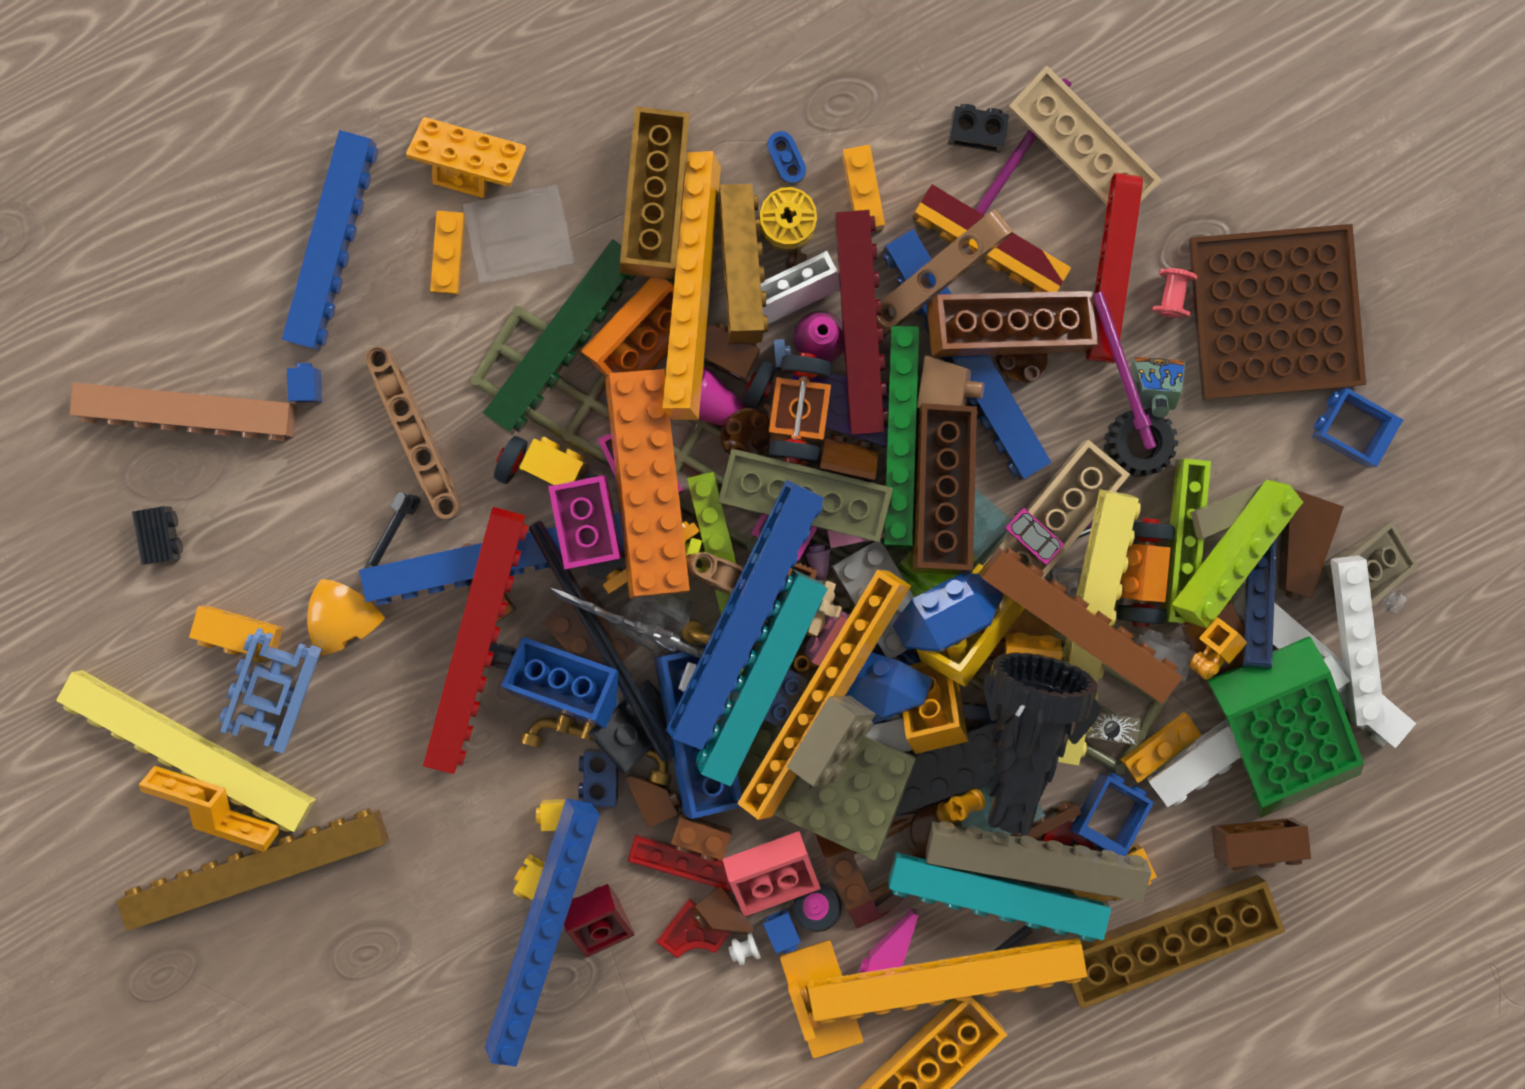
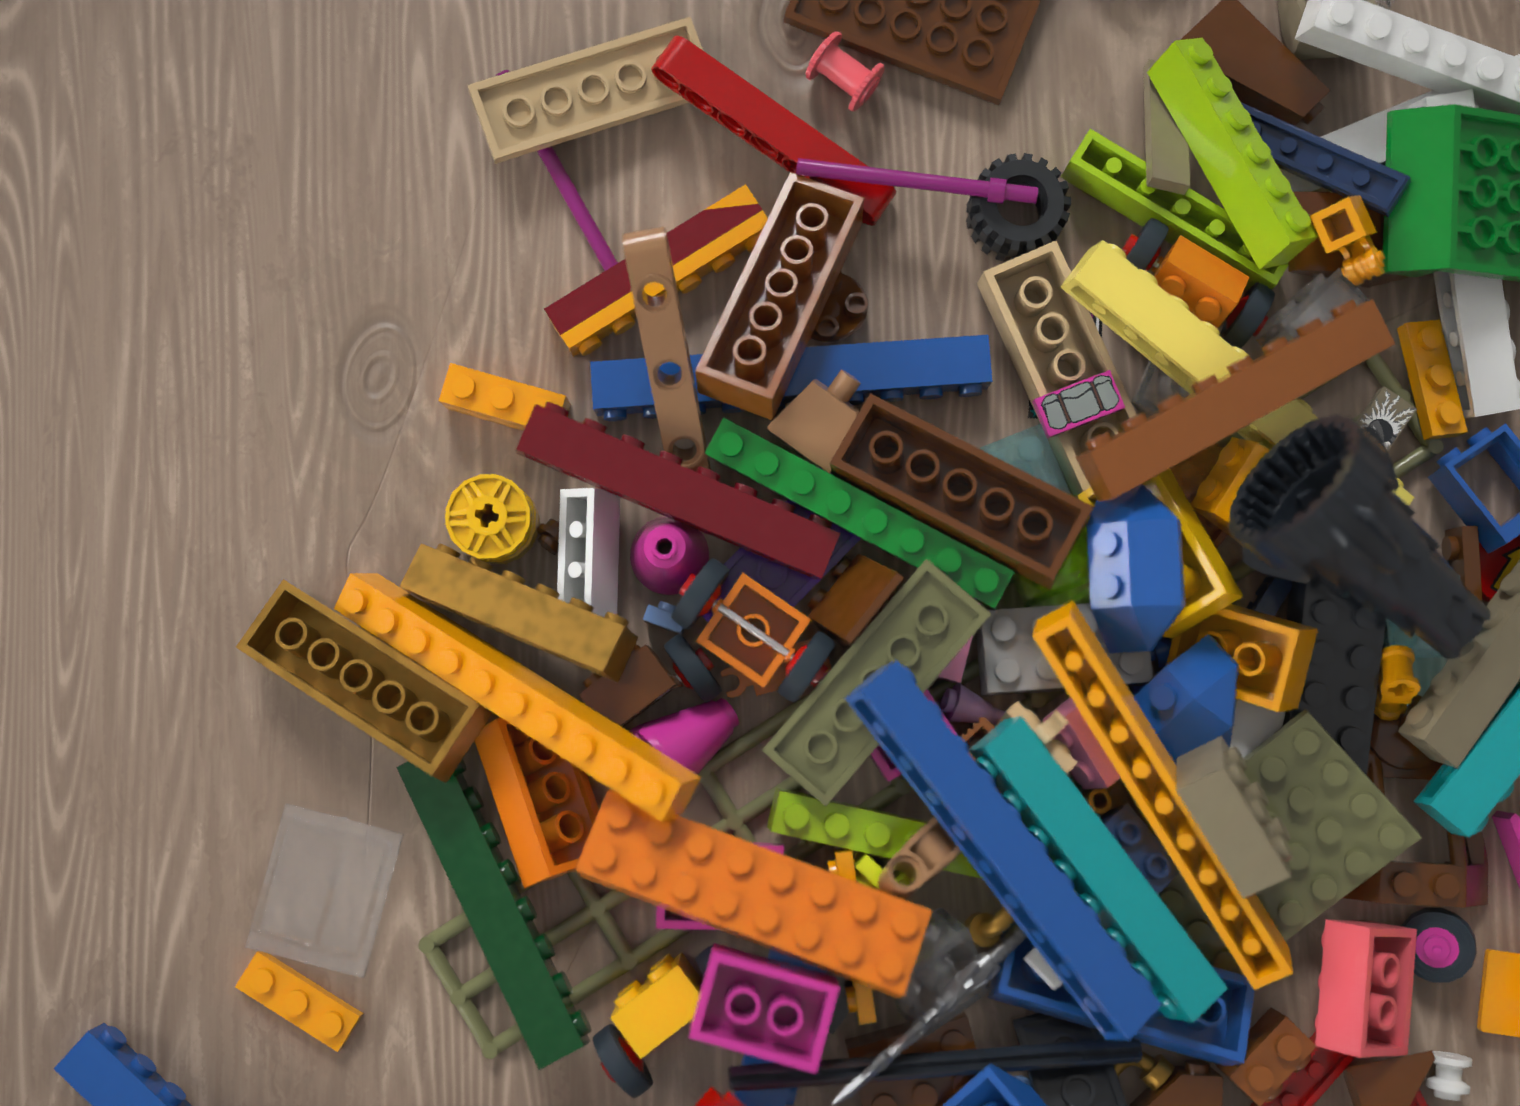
camera: 65 degrees left, 5 degrees down
(464, 157) = (183, 912): light orange bracket -> none
(746, 431) = (747, 718): reddish brown dish -> none
(782, 931) = (1447, 1010): blue brick -> none
(788, 158) = (413, 480): blue plate -> none
(978, 136) = (513, 220): black brick -> none
(1158, 383) = (953, 145): torso -> none

